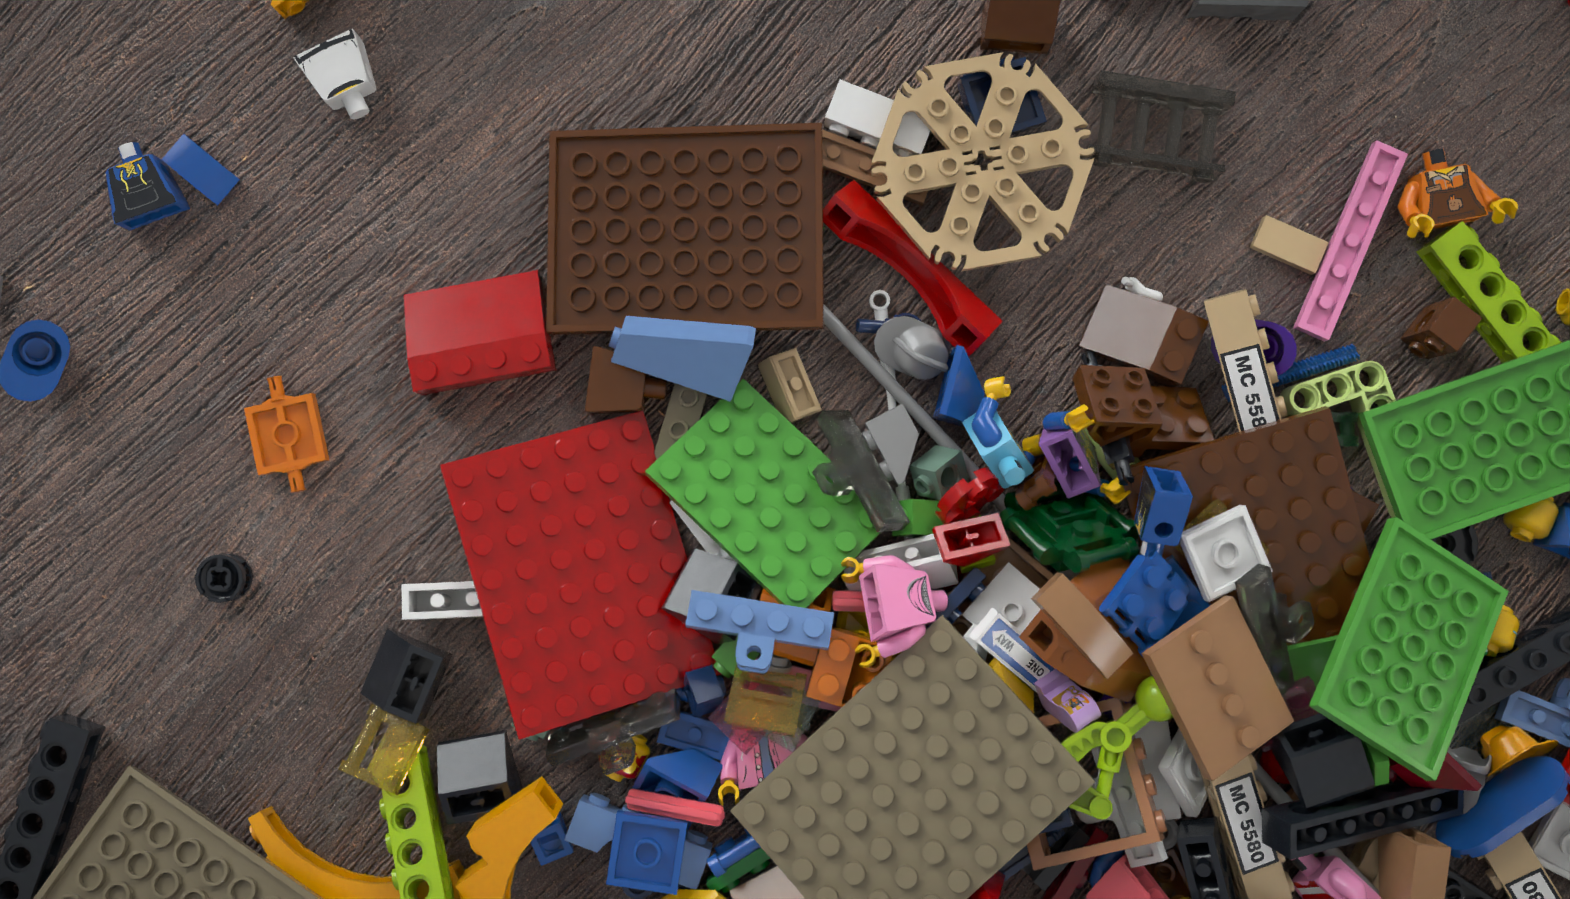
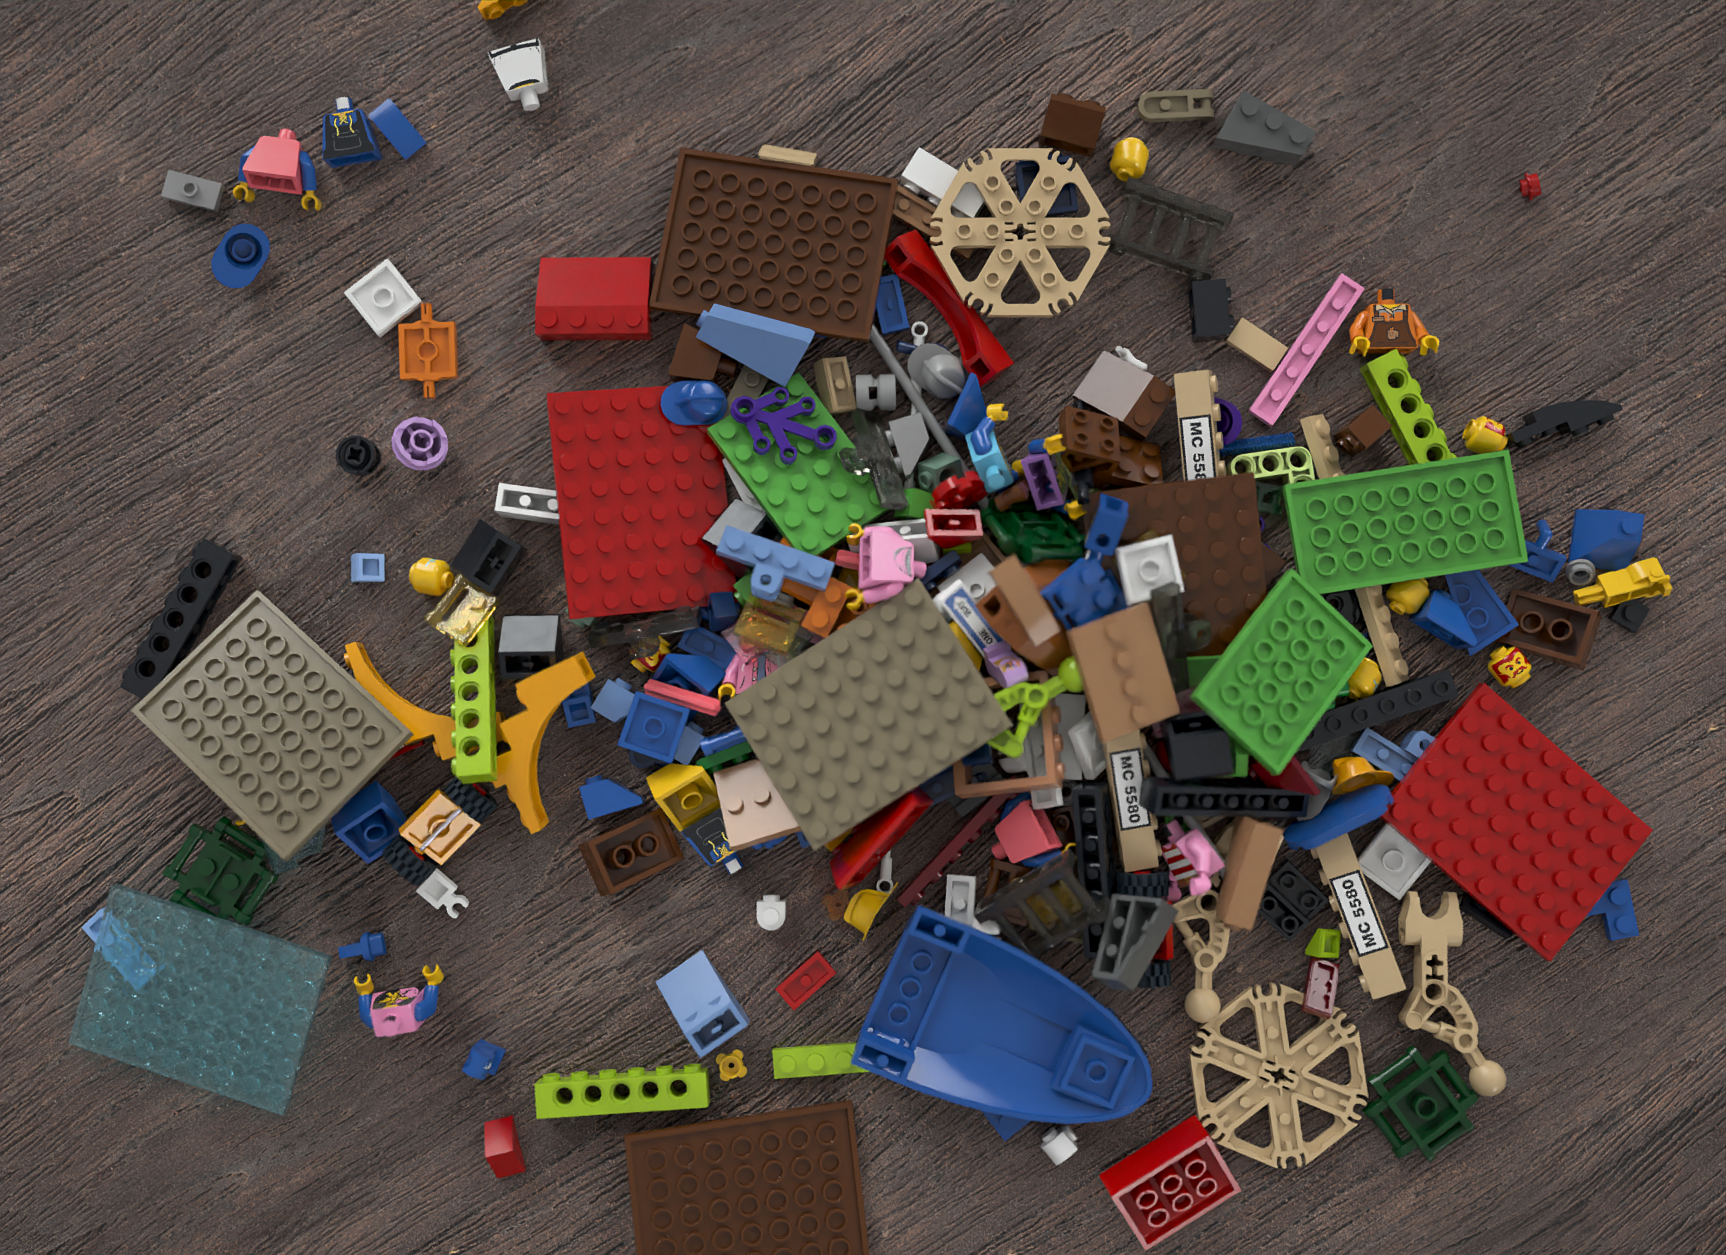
camera: 15 degrees right, 0 degrees up
(60, 242) = (277, 166): none -> coral torso
(220, 378) = (383, 298): none -> white plate
(260, 712) = (367, 567): none -> light blue slope
(295, 552) = (420, 443): none -> lavender cone
(339, 711) = (431, 576): none -> yellow head
(622, 440) = (693, 403): none -> blue piece
(681, 117) = (787, 155): none -> tan slope
(732, 448) = (778, 423): none -> dark purple plant
(841, 278) = (891, 306): none -> blue plate
(853, 383) = (885, 392): none -> light grey wheel
(1095, 48) = (1129, 159): none -> yellow head
(1226, 213) = (1210, 310): none -> black brick
(1495, 545) = (1370, 598): none -> tan plate

